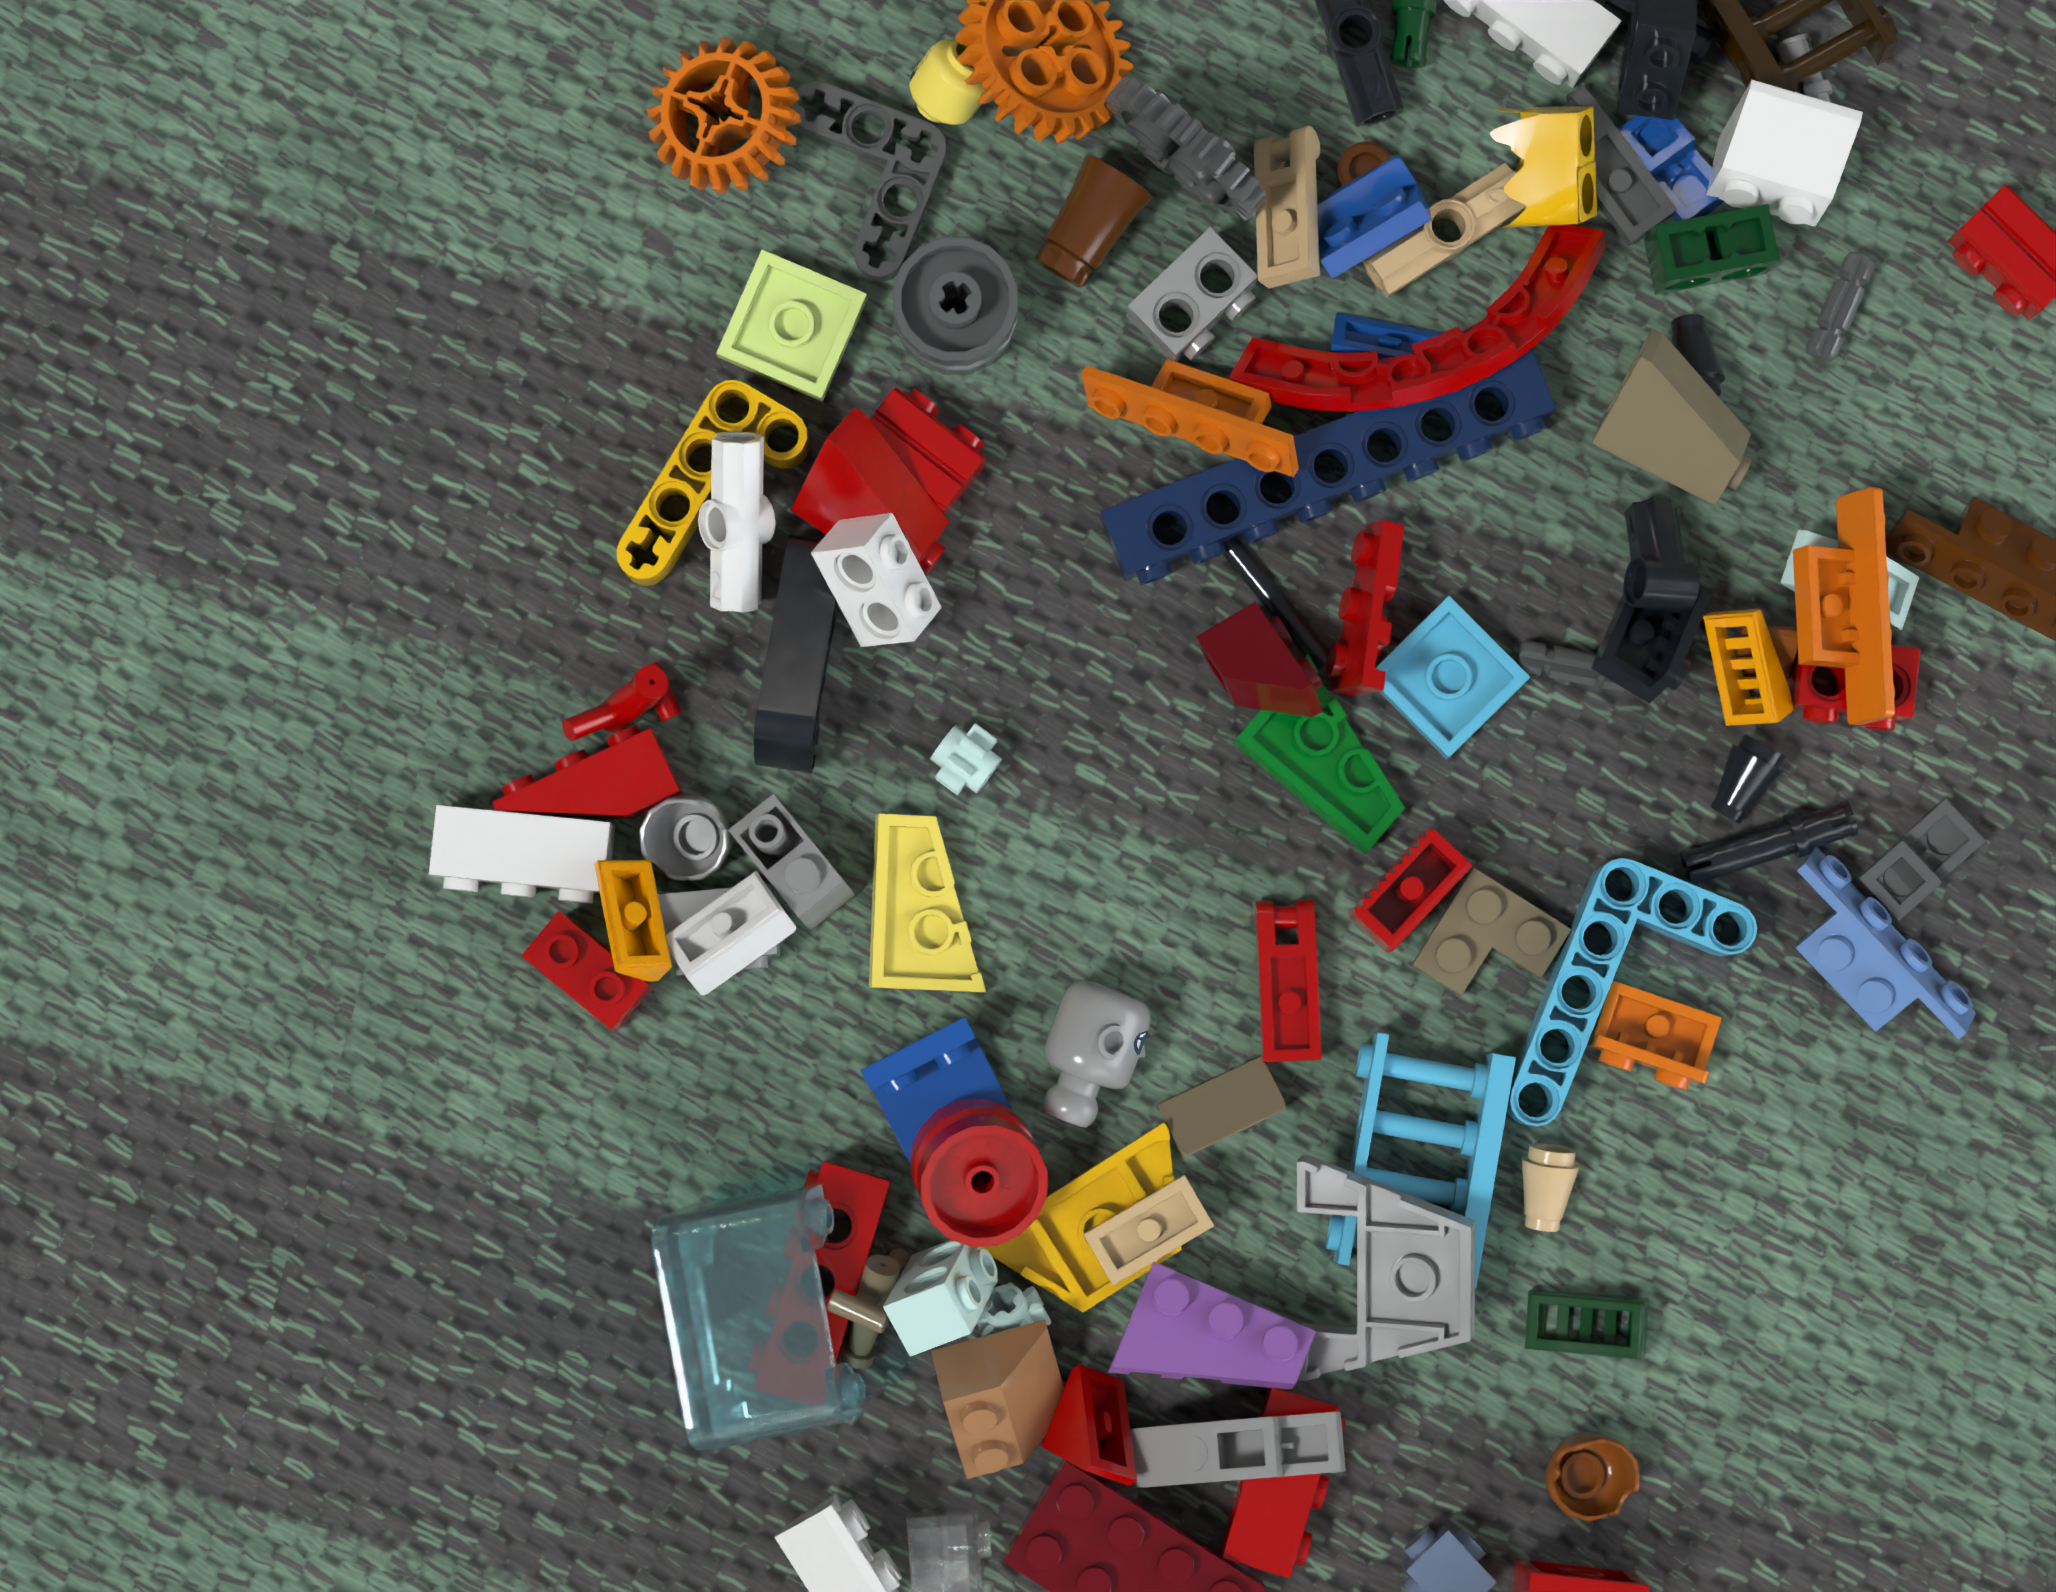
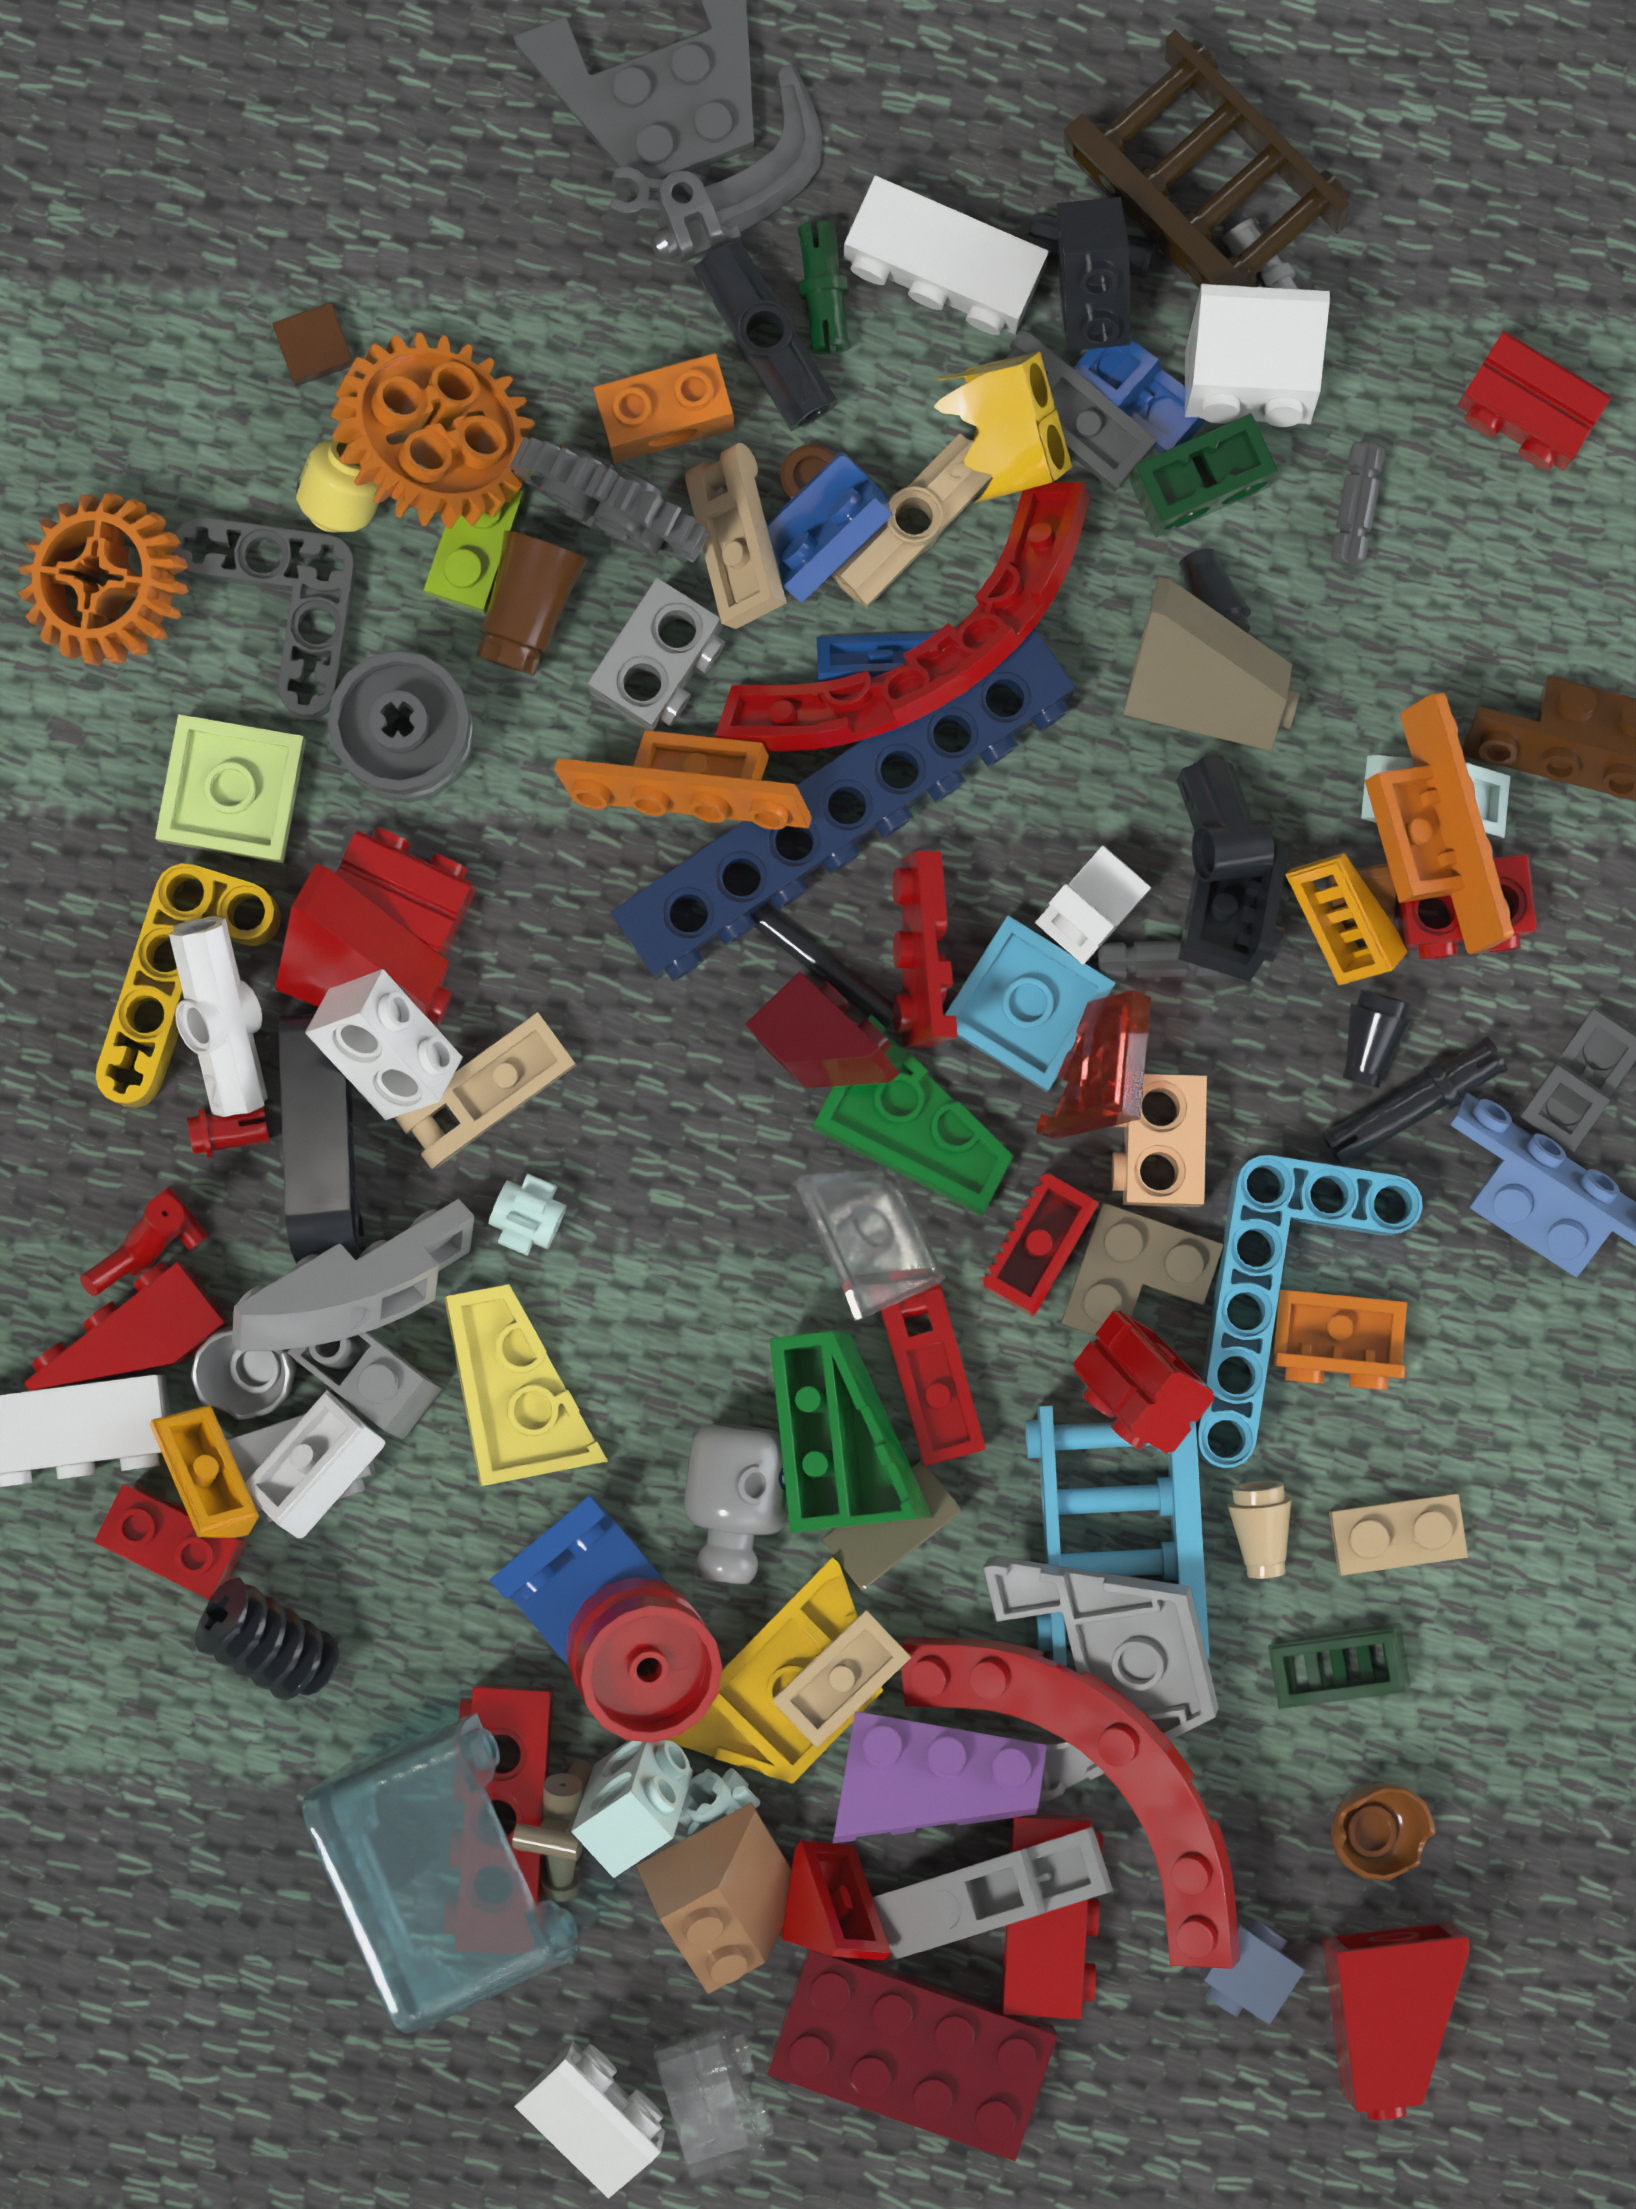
camera: 10 degrees left, 0 degrees up
(651, 1078) = (266, 1641): none -> black piece
(712, 624) = (216, 1132): none -> red pin
(791, 793) = (342, 1297): none -> light grey slope
(958, 641) = (490, 1089): none -> tan plate
(1049, 172) = (470, 558): none -> lime plate
(1193, 1019) = (837, 1439): none -> green wedge
(1250, 80) = (664, 408): none -> orange brick
(1261, 849) = (869, 1237): none -> clear slope
(1386, 1351) = (1125, 1747): none -> red plate
(1472, 1033) = (1141, 1383): none -> red brick
(1503, 748) = (1103, 1068): none -> clear red wing
(1526, 603) = (1093, 904): none -> white brick
(1553, 830) = (1178, 1142): none -> light nougat brick
(1665, 1220) = (1398, 1534): none -> tan plate

